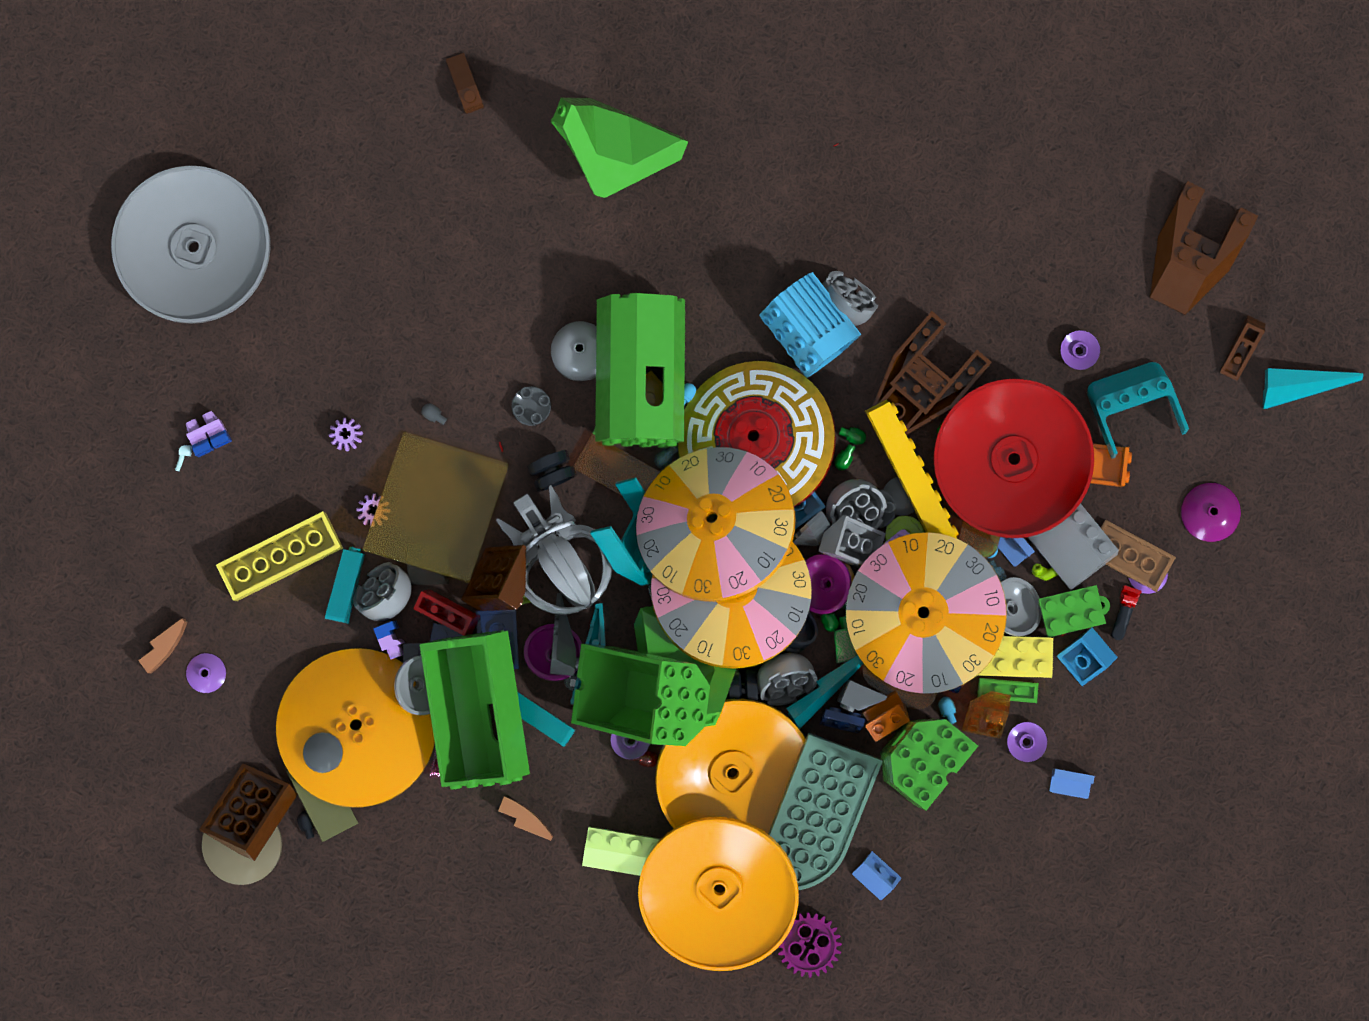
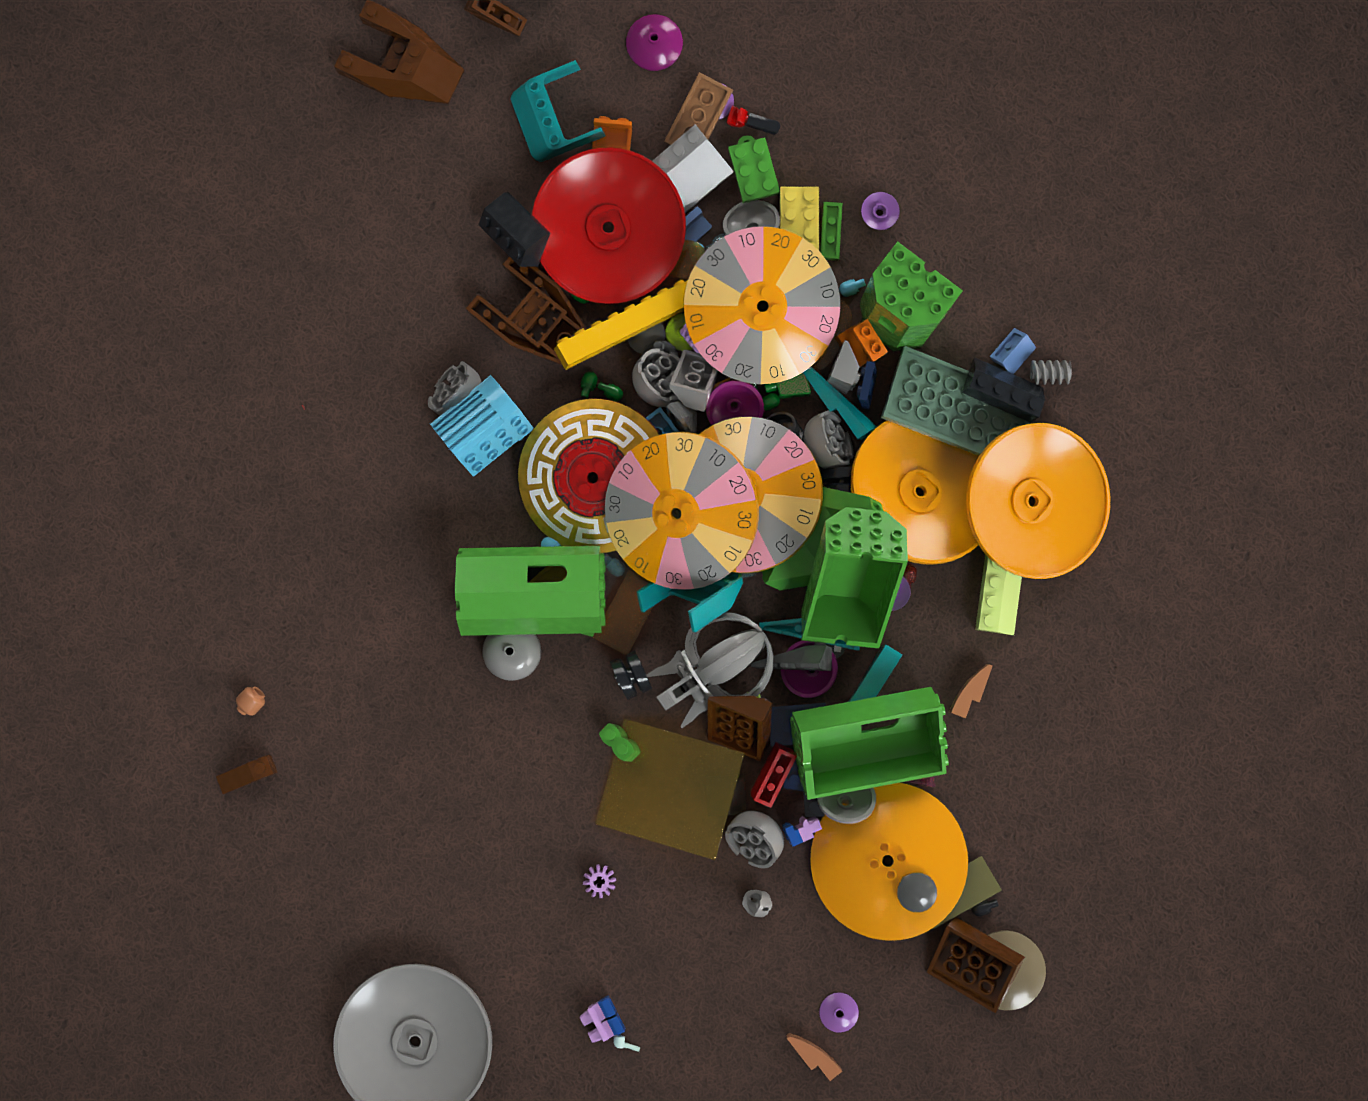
camera: 90 degrees left, 0 degrees up
(279, 556) = (722, 943): light yellow brick -> none
(316, 595) = (759, 905): none -> light grey piece
(345, 586) = (750, 876): teal slope -> none
(366, 508) = (672, 857): lavender gear -> none
(433, 413) = (577, 795): dark grey cylinder -> none
(488, 455) = (622, 746): none -> bright green brick
(531, 406) = (567, 698): dark grey dish -> none
(538, 87) = (250, 701): none -> nougat head
(614, 145) = (306, 623): bright green panel -> none
(825, 953) = (1088, 398): magenta gear -> none
(835, 863) = (1004, 390): none -> black slope
(853, 914) = (1050, 371): none -> light grey piece
(987, 714) = (855, 247): clear orange slope -> none
(1010, 362) = (515, 230): none -> black slope
(1042, 572) = (717, 198): lime arm -> none
(1071, 783) = (917, 169): medium blue panel -> none
(1087, 343) = (500, 158): medium lavender dish -> none
(1087, 656) = (796, 155): dark azure slope -> none

